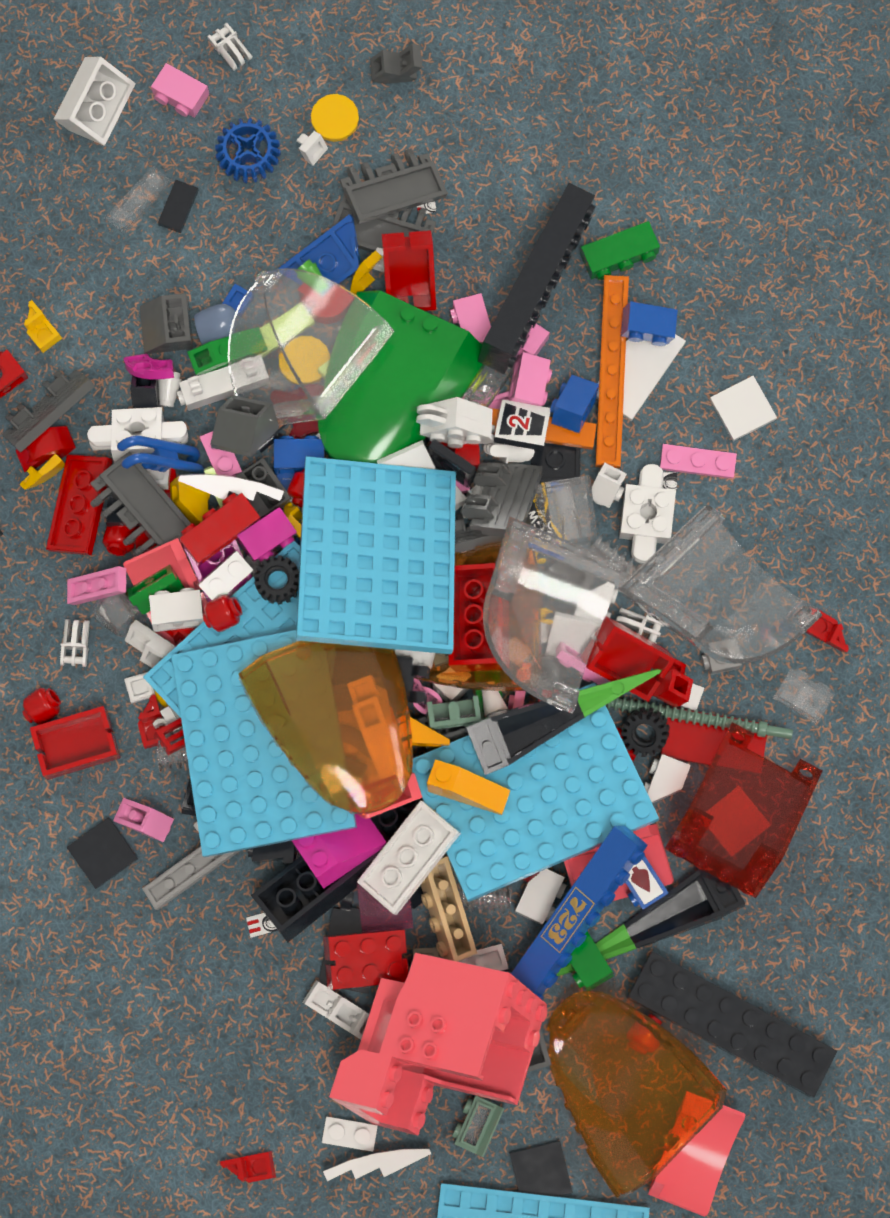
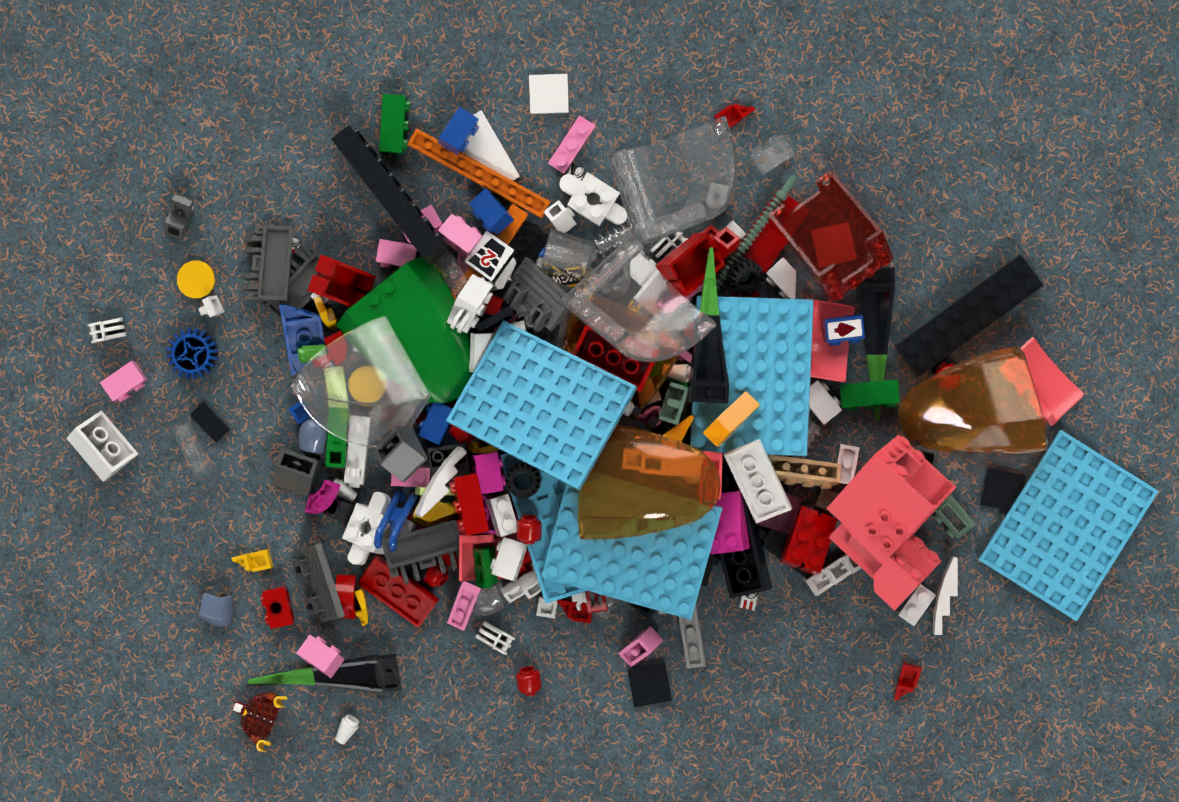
camera: 65 degrees left, 10 degrees up
(75, 742) = (566, 669): red piece -> none
(579, 909) = (849, 385): blue brick -> none

